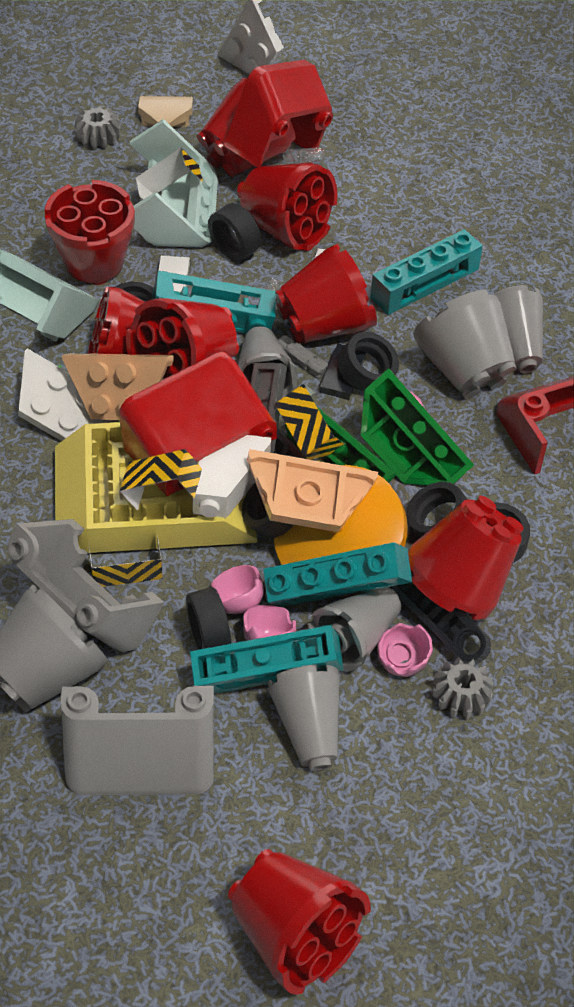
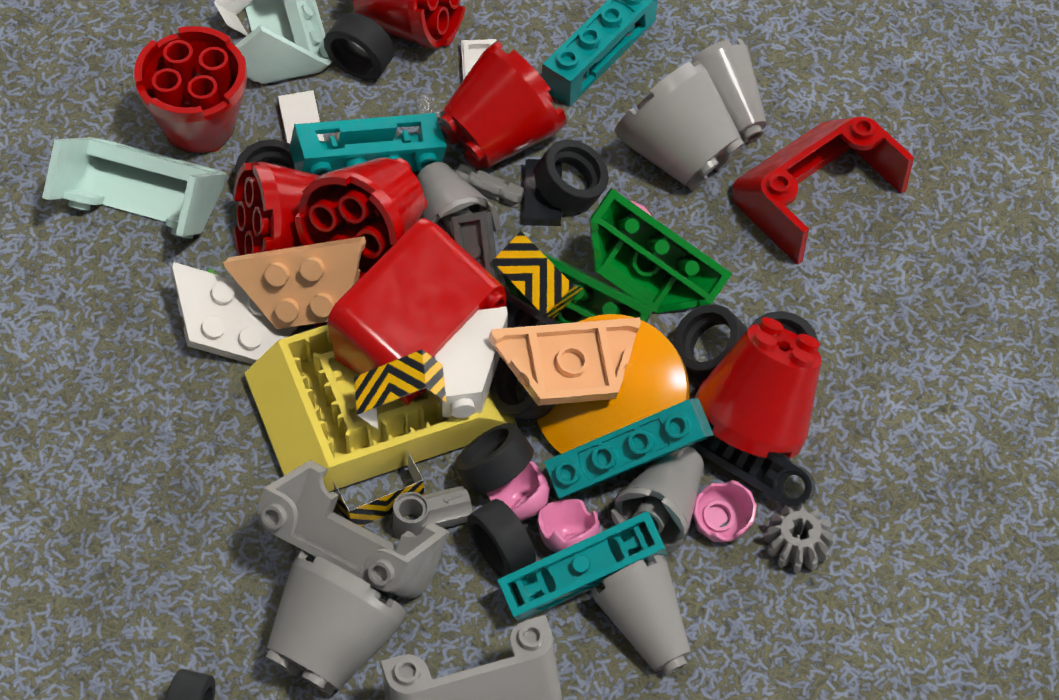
camera: 15 degrees left, 5 degrees up
(169, 587) = (441, 508): none -> light grey piece
(226, 558) = (494, 458): none -> black tyre

